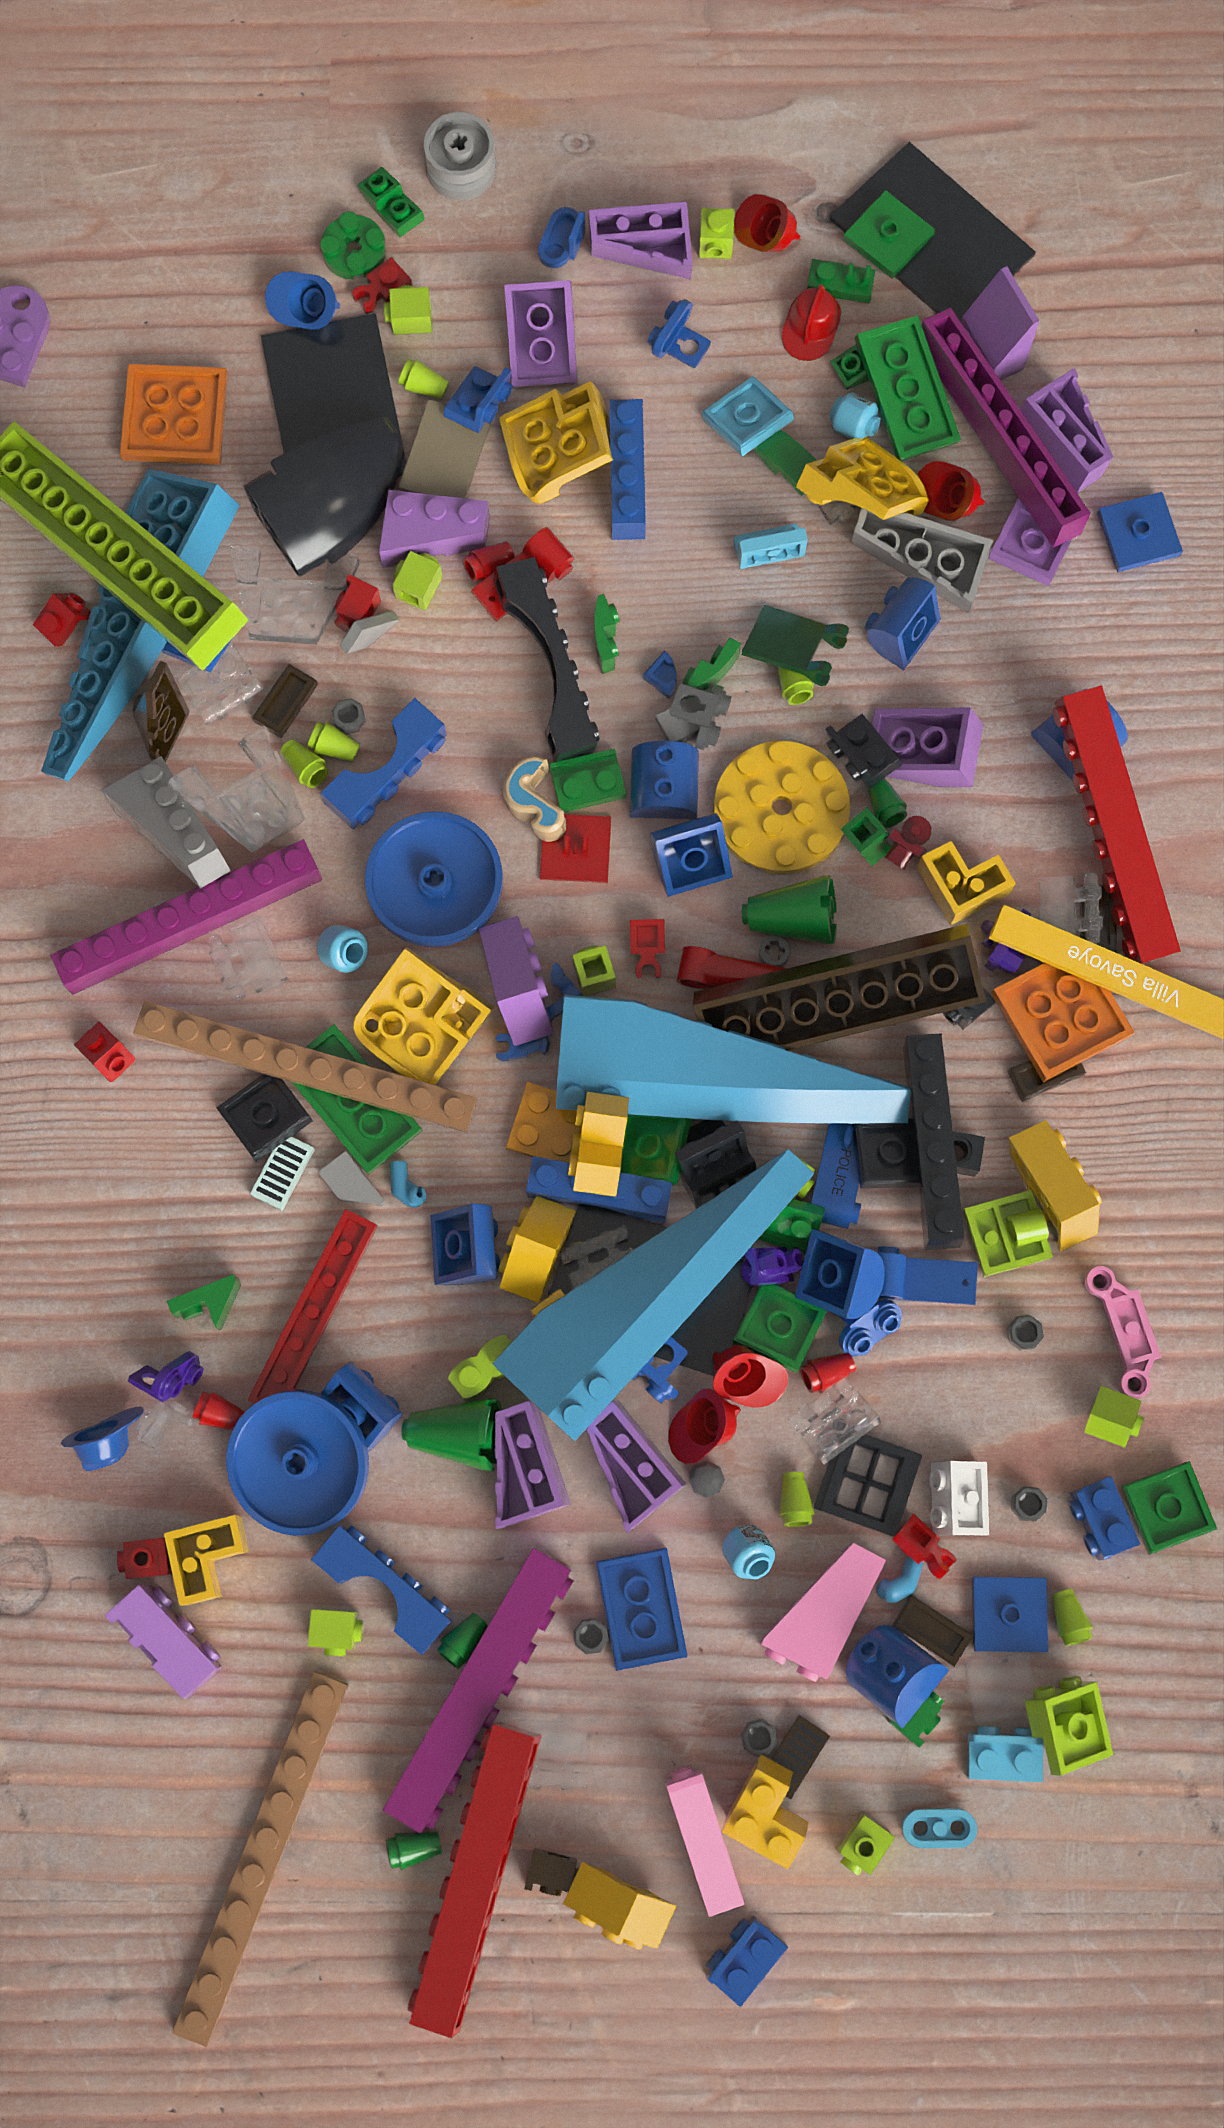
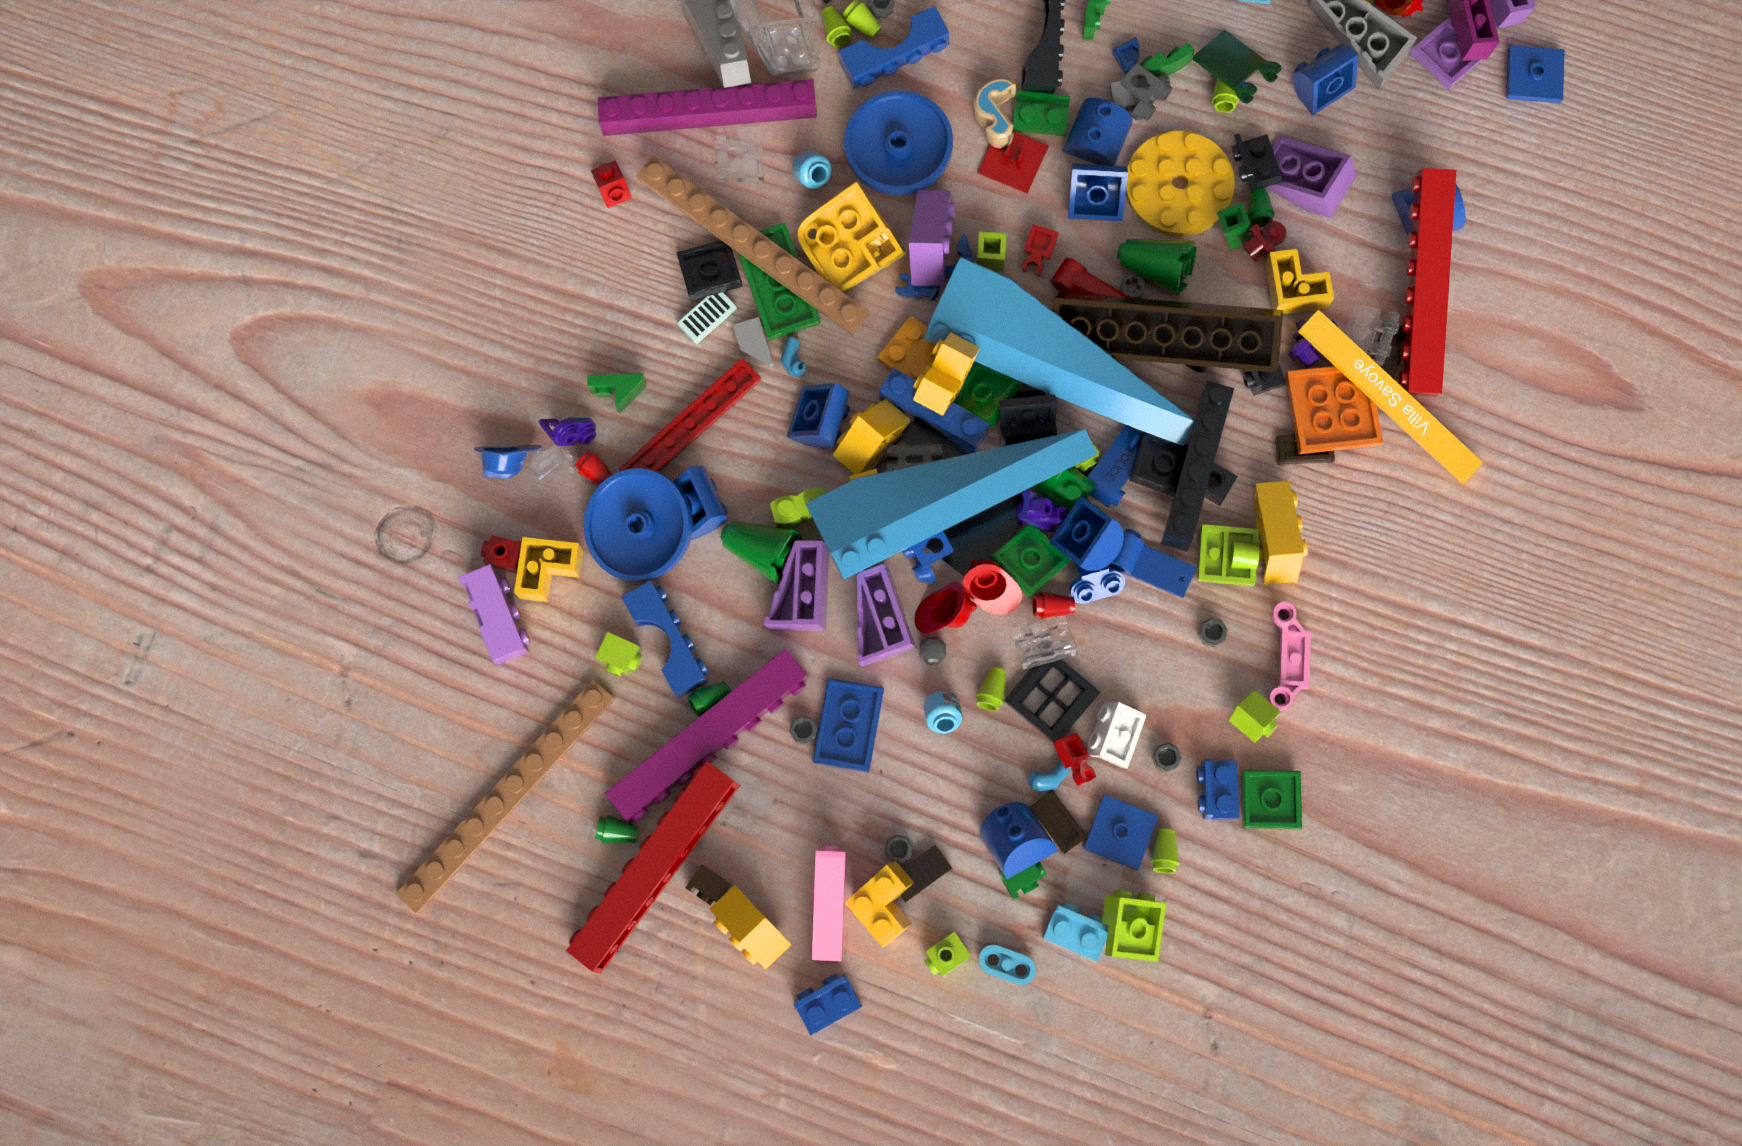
camera: 25 degrees right, 0 degrees up
(823, 1617) = (981, 779): bright pink slope -> none

